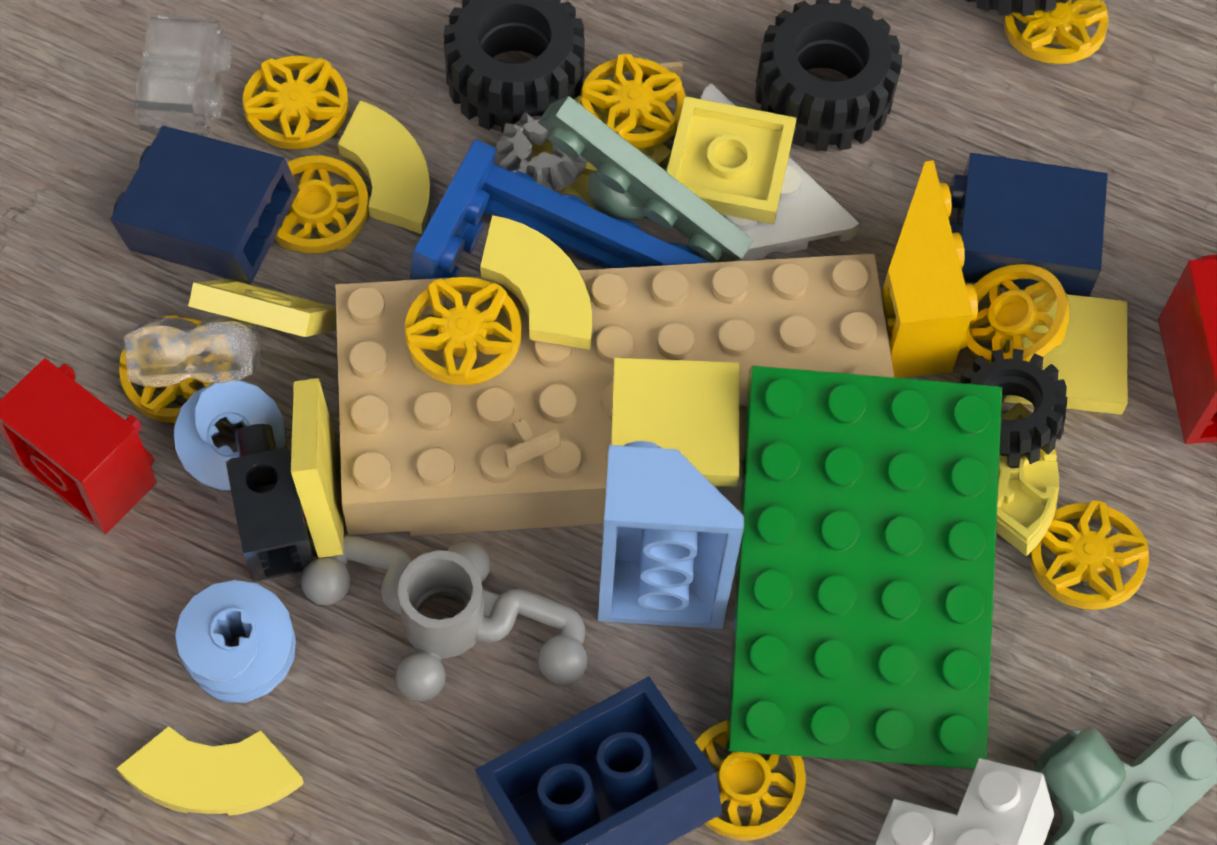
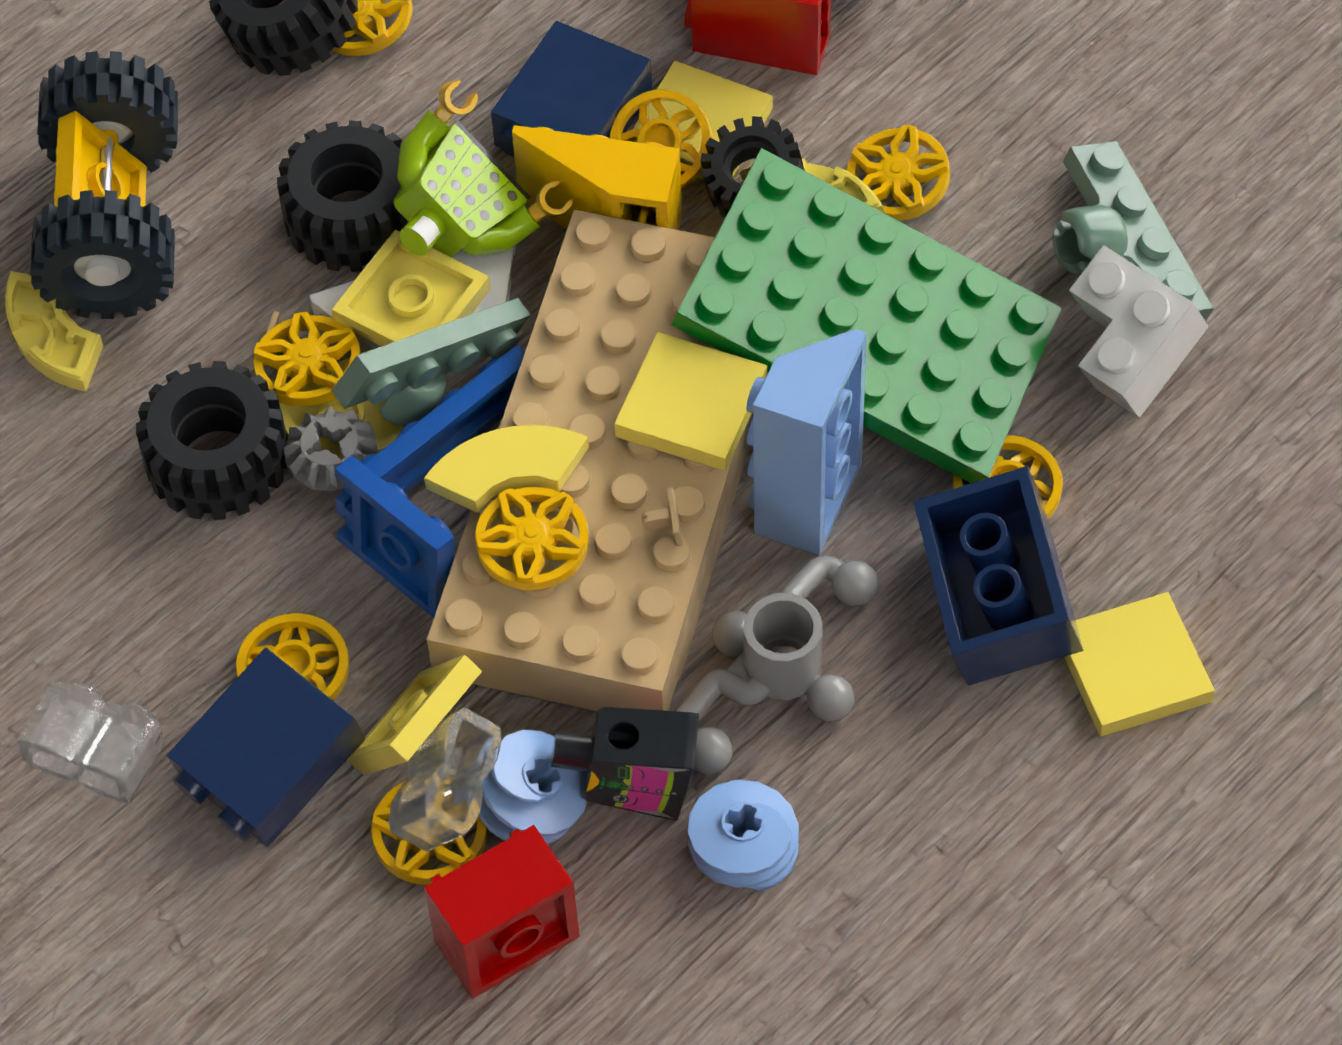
camera: 65 degrees left, 5 degrees down
(210, 778) = (864, 897): light yellow tile -> none
(295, 101) = (163, 653): yellow wheel -> none
(317, 467) = (582, 690): light yellow tile -> none
(392, 164) = (276, 587): light yellow tile -> none
(852, 149) = (458, 191): none -> lime torso

